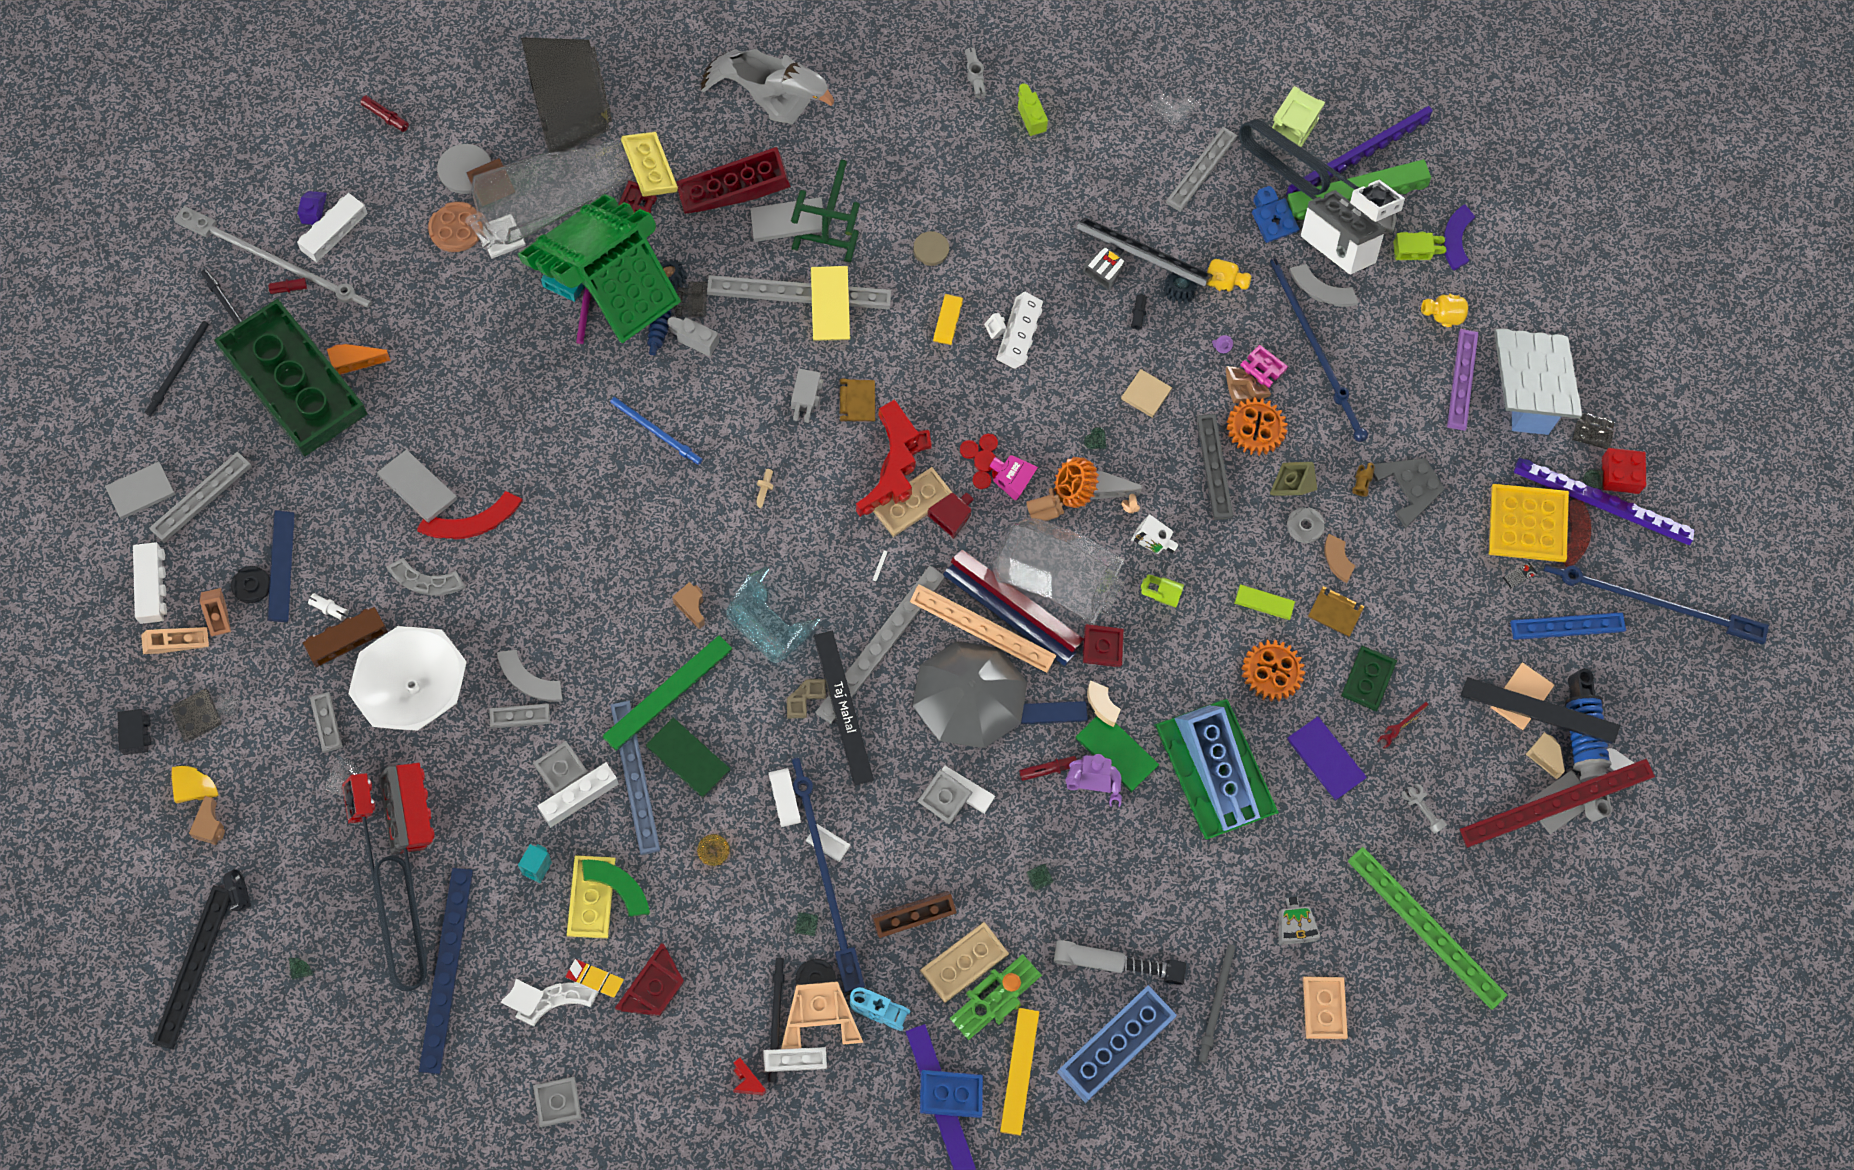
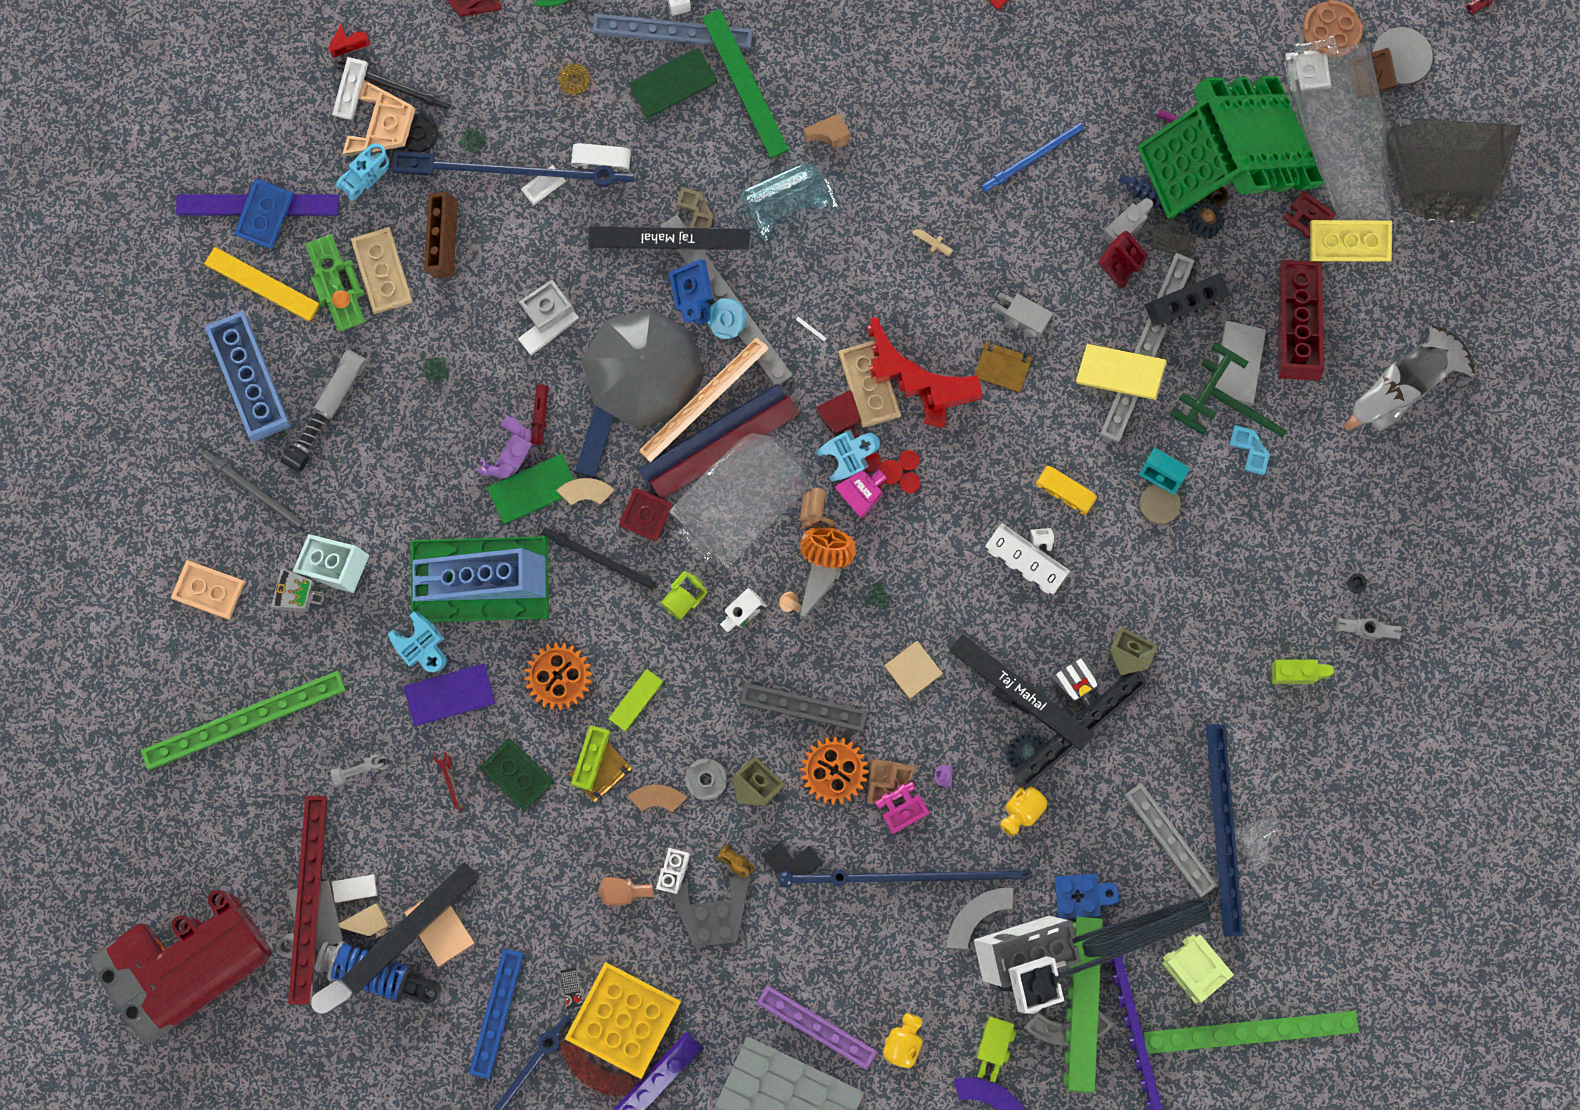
camera: 115 degrees right, 10 degrees up
(725, 327) = (1122, 258): none -> dark red slope
(749, 268) = (1159, 308): none -> black brick
(860, 188) = (1249, 440): none -> medium azure tile
(895, 669) = (694, 299): none -> blue plate
(900, 634) = (727, 318): none -> medium azure tile
(904, 248) = (1164, 471): none -> teal brick
(937, 87) = (1363, 582): none -> black bush
(984, 493) = (850, 453): none -> medium azure piece
(1064, 232) = (1131, 652): none -> olive slope
(1134, 301) = (1021, 692): none -> black tile
(1153, 709) = (562, 540): none -> black bar
(1171, 135) = (1224, 830): none -> dark blue plate
(1256, 903) = (331, 563): none -> light aqua slope
(1297, 793) = (422, 644): none -> medium azure piece
(1322, 76) = (1251, 1032): none -> bright green plate
(1329, 621) = (590, 758): none -> lime tile
(1341, 429) = (800, 865): none -> black tile
(1392, 524) = (673, 871): none -> white slope
(1430, 557) = (621, 892): none -> nougat piece
(1523, 778) = (354, 888): none -> white tile
(1684, 899) = (165, 986): none -> dark red piece

